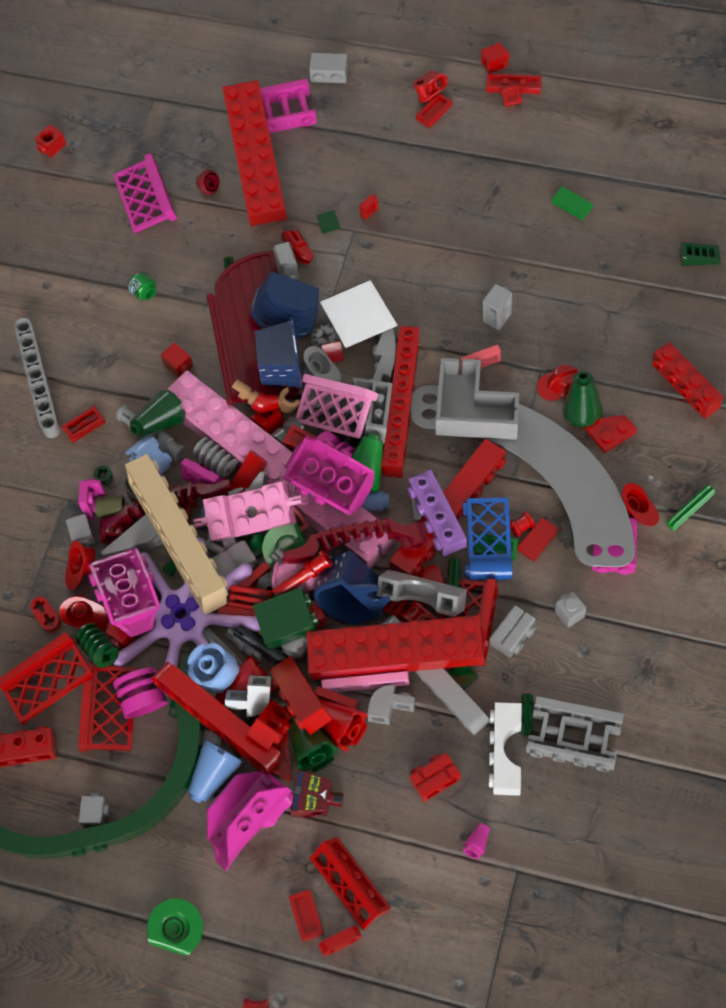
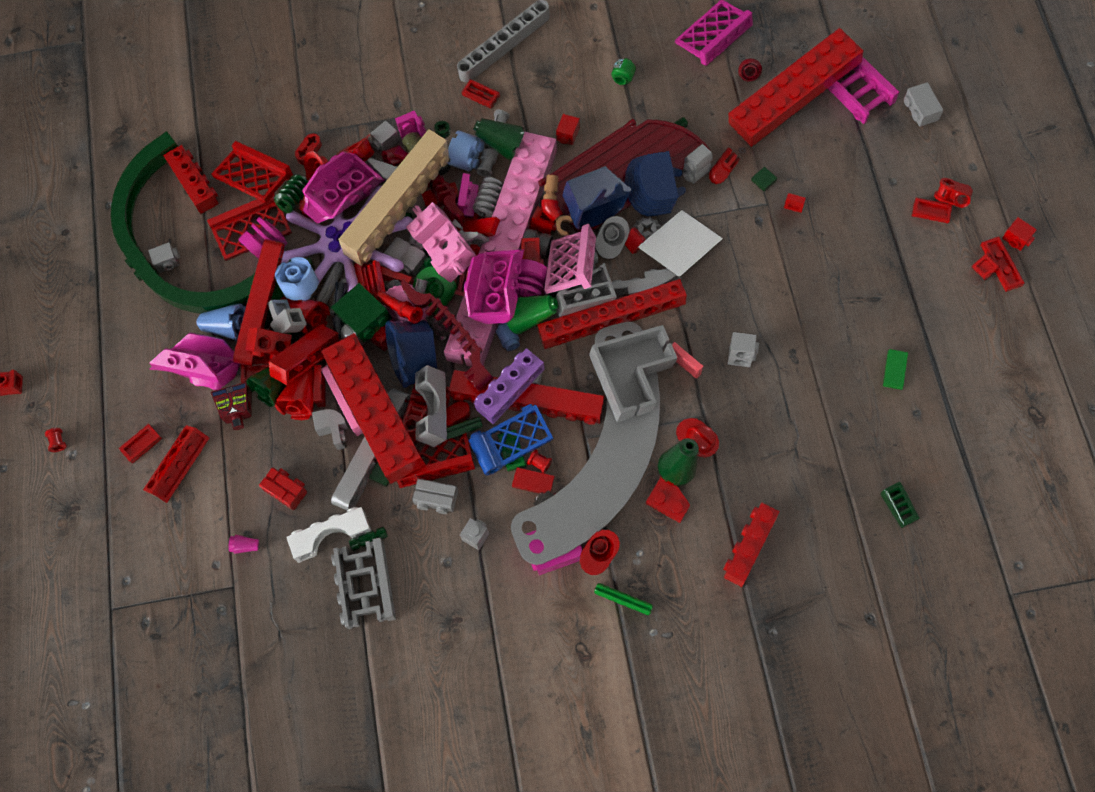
camera: 65 degrees right, 5 degrees up
(175, 926) = (96, 354): green hat -> none
(340, 940) = (126, 476): red beam -> none

